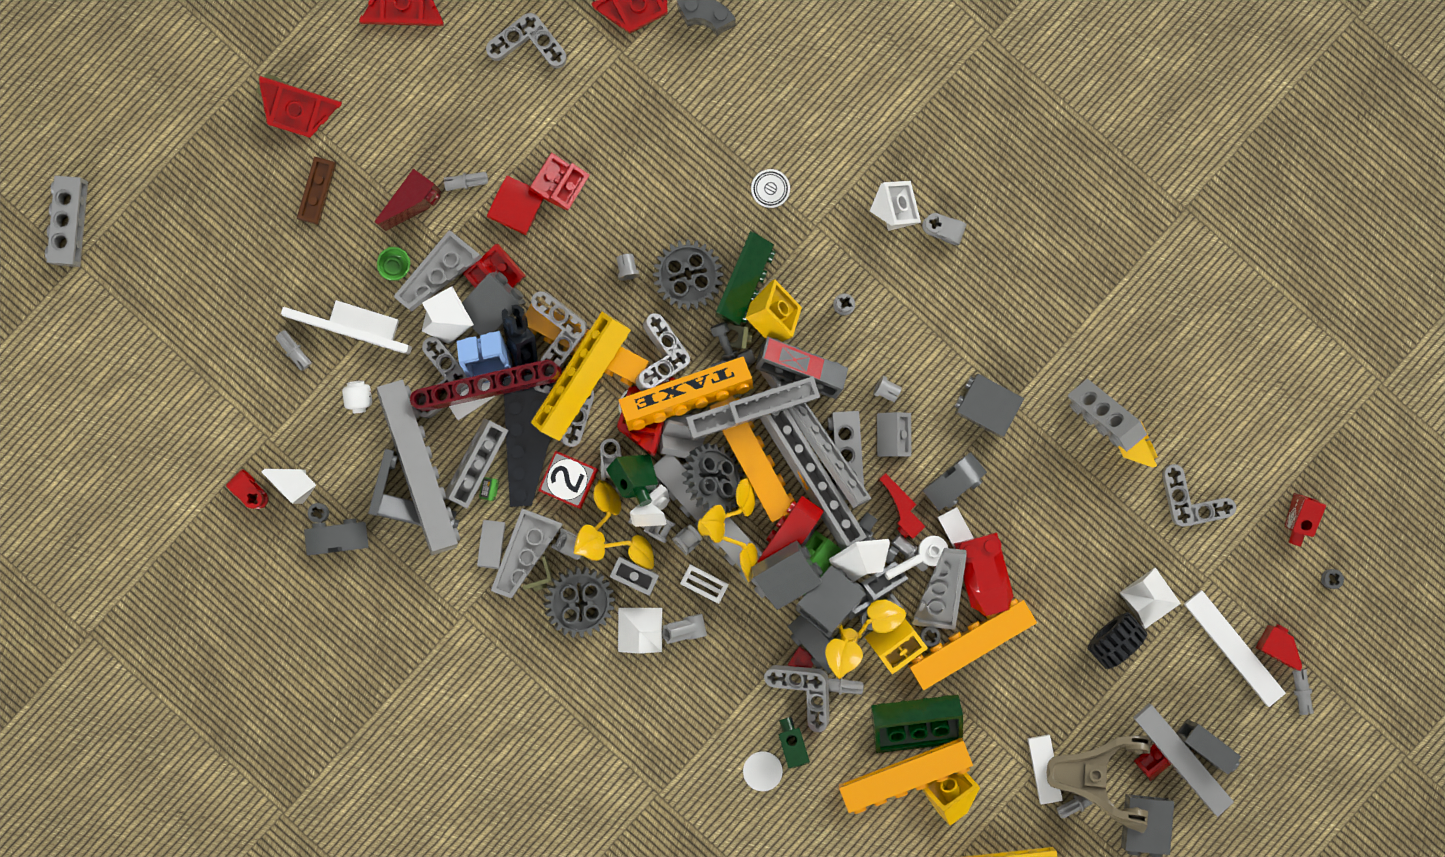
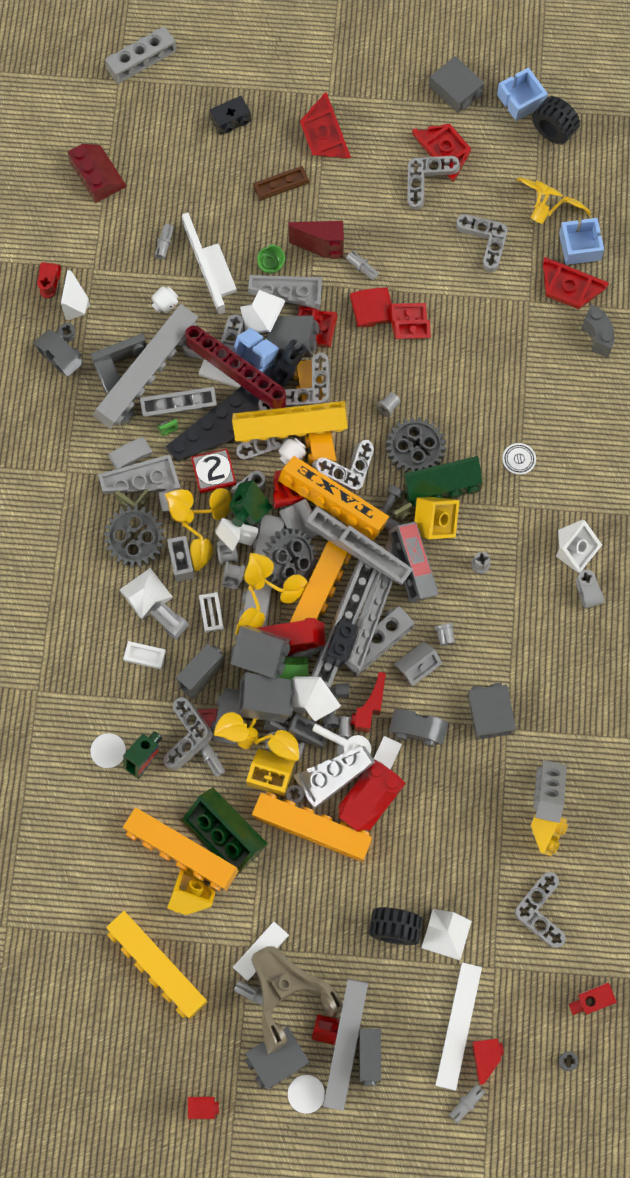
camera: 55 degrees right, 15 degrees down
(164, 359) = (95, 171): none -> dark red slope
(203, 173) = (230, 115): none -> black brick
(413, 43) = (424, 170): none -> light grey beam
(606, 393) = (292, 448): none -> white head
(699, 674) = (144, 655): none -> white tile
(757, 637) = (200, 670): none -> dark grey brick
(836, 498) = (340, 643): none -> black brick
(1192, 820) = (306, 1094): none -> white sticker

